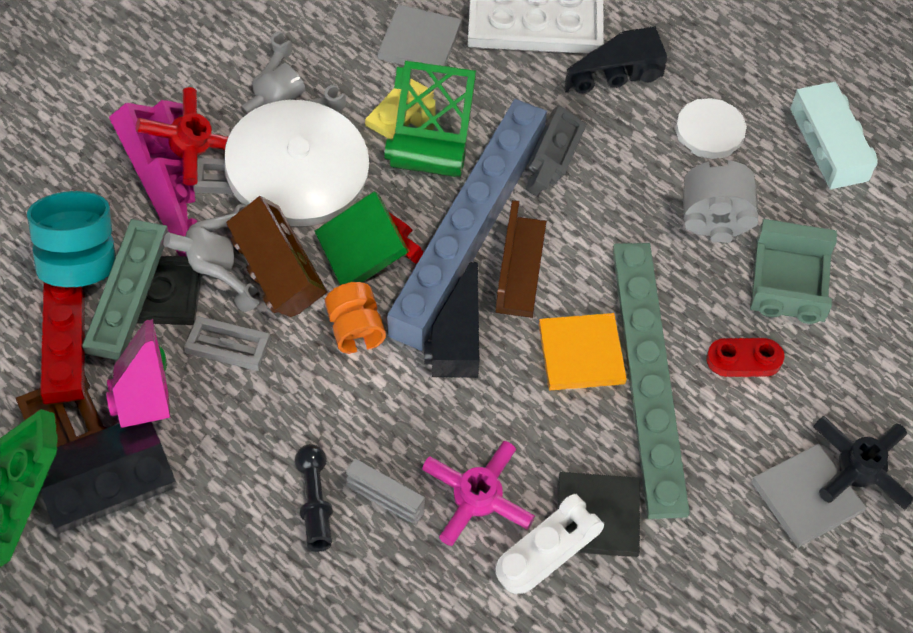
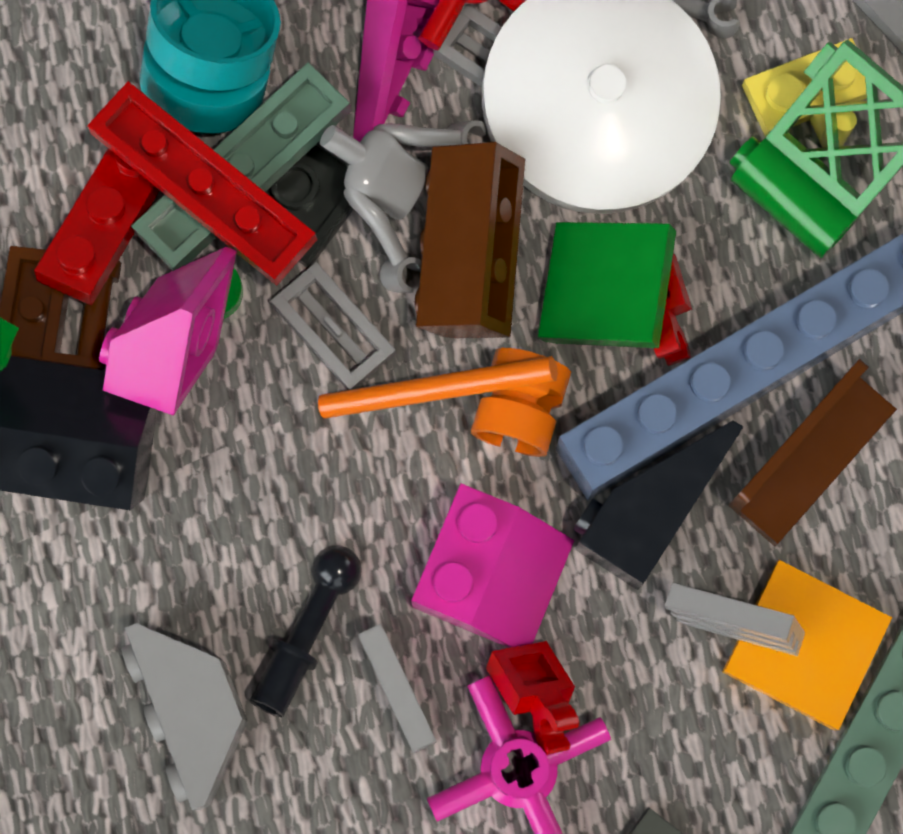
camera: 35 degrees right, 20 degrees up
(110, 298) = (202, 183): none -> red plate
(275, 567) = (190, 708): none -> light grey slope
(305, 332) = (438, 387): none -> orange bar
(394, 406) = (492, 569): none -> dark pink slope
(457, 444) = (536, 683): none -> red plate
(537, 352) = (735, 619): none -> light grey tile

